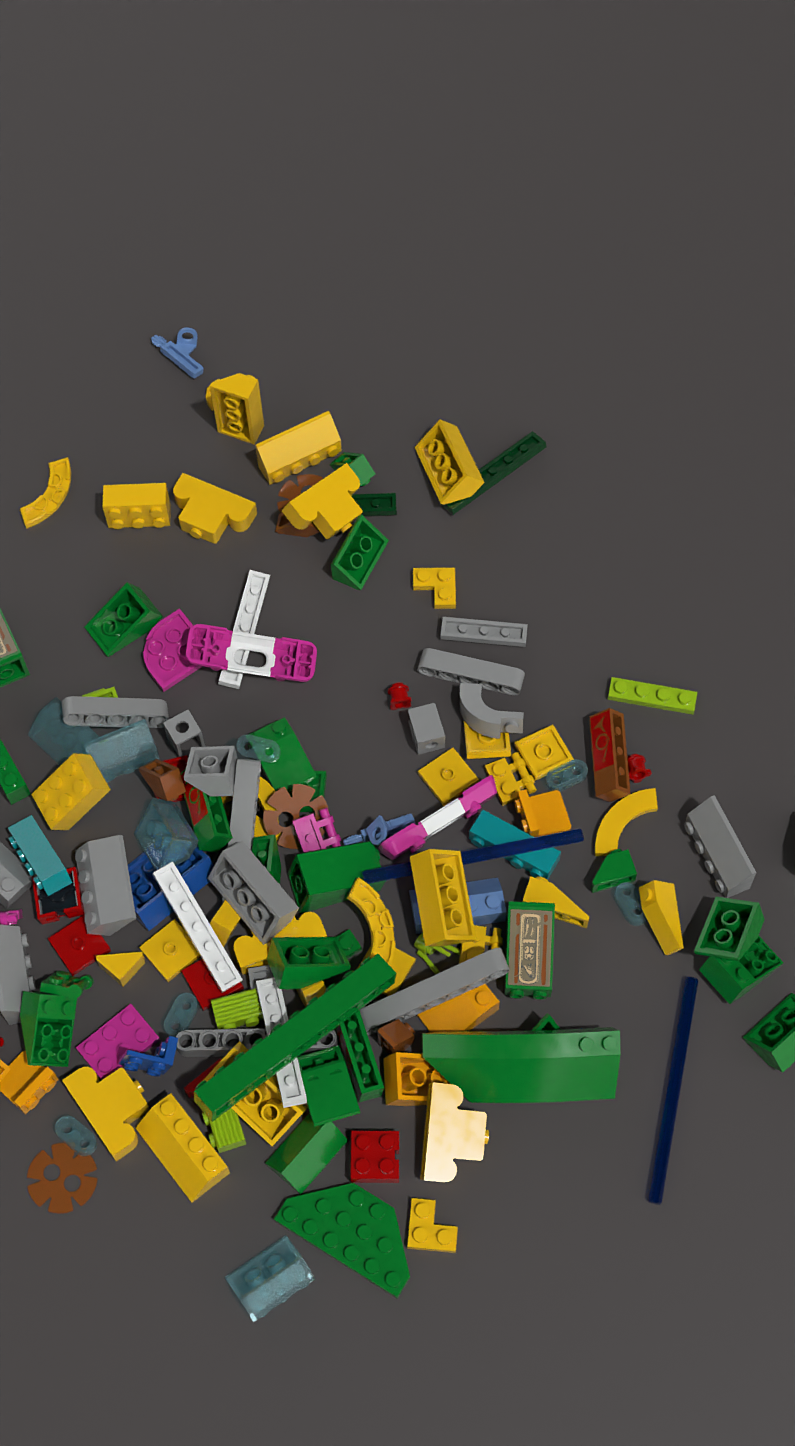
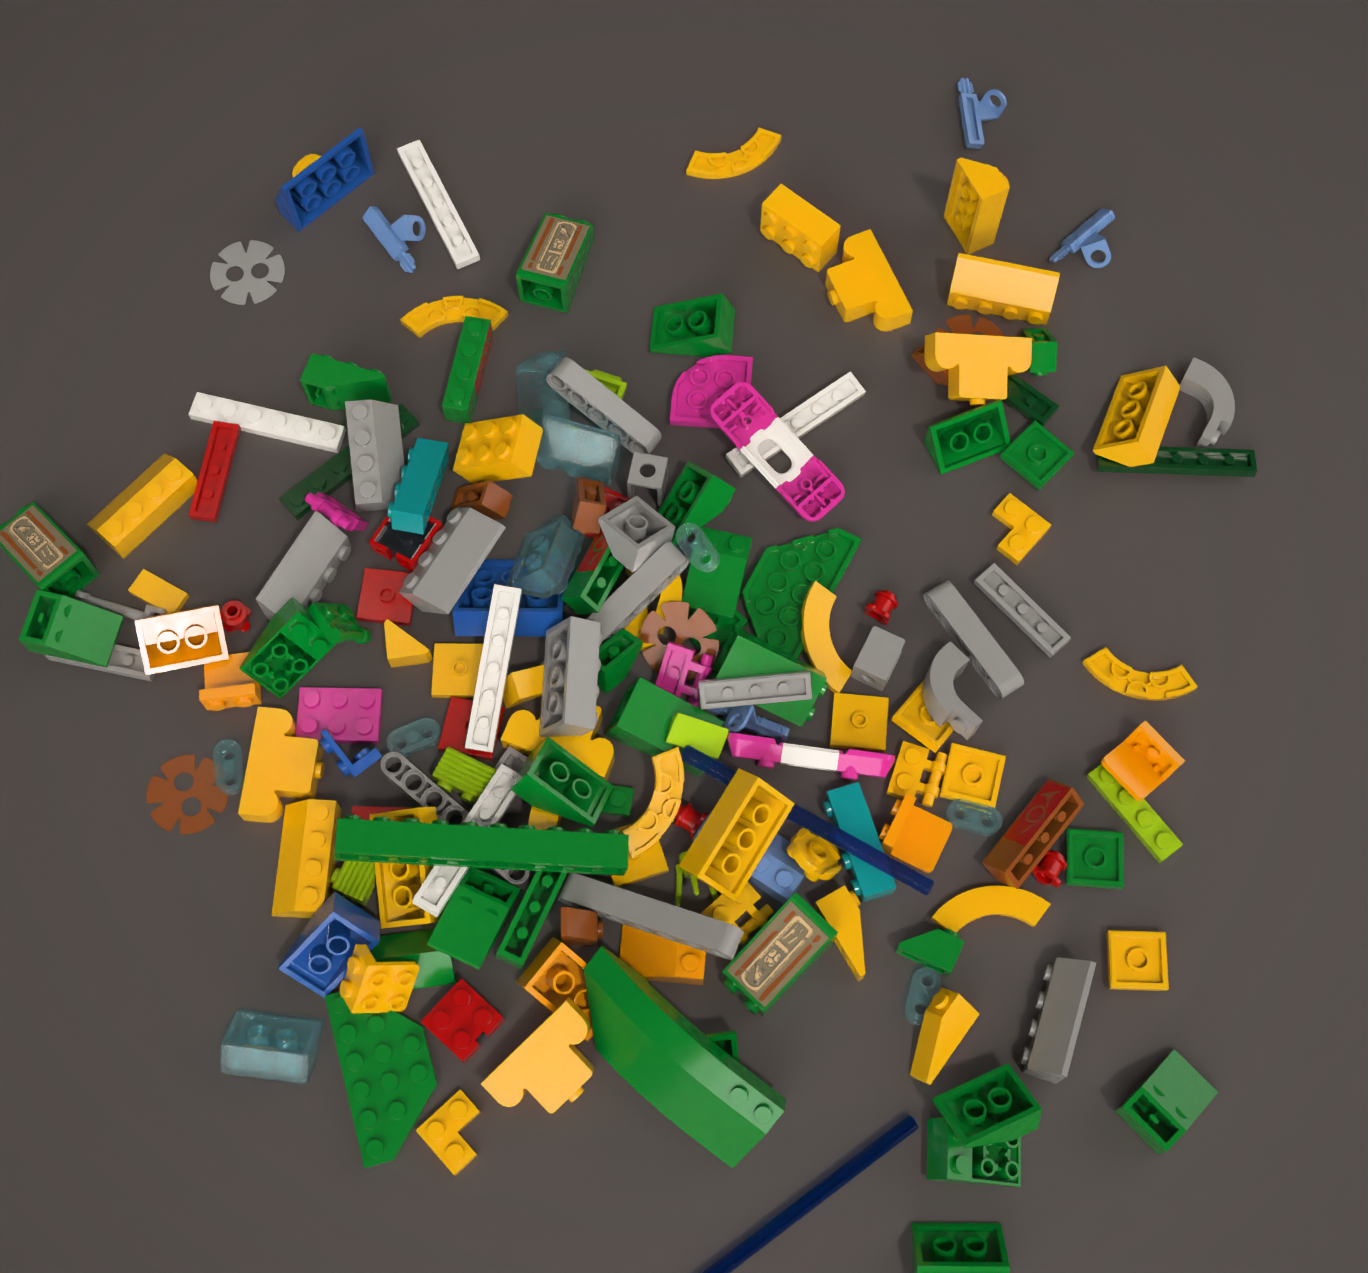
camera: 40 degrees right, 5 degrees up
(86, 829) = (484, 498): none -> dark orange slope
(226, 720) = (695, 498): none -> green slope
(251, 1182) = (326, 943): none -> blue slope
(303, 1180) = (377, 985): none -> yellow bracket
(321, 379) = (1088, 239): none -> medium blue piece
(336, 731) = (782, 581): none -> green plate
(360, 860) = (696, 733): none -> lime slope
(371, 792) = (748, 655): none -> green slope
(373, 804) = (755, 689): none -> light grey tile
(378, 746) = (817, 638): none -> yellow tile
(402, 917) = (689, 819): none -> red brick
(408, 533) = (1037, 455): none -> green plate
(481, 416) = (1215, 395): none -> light grey arch
(496, 873) = (814, 855): none -> yellow plate
(587, 622) = (1138, 684): none -> yellow tile
(633, 662) = (1142, 761): none -> light orange bracket
(656, 741) = (1094, 858): none -> green plate
(731, 779) = (1137, 960): none -> yellow plate

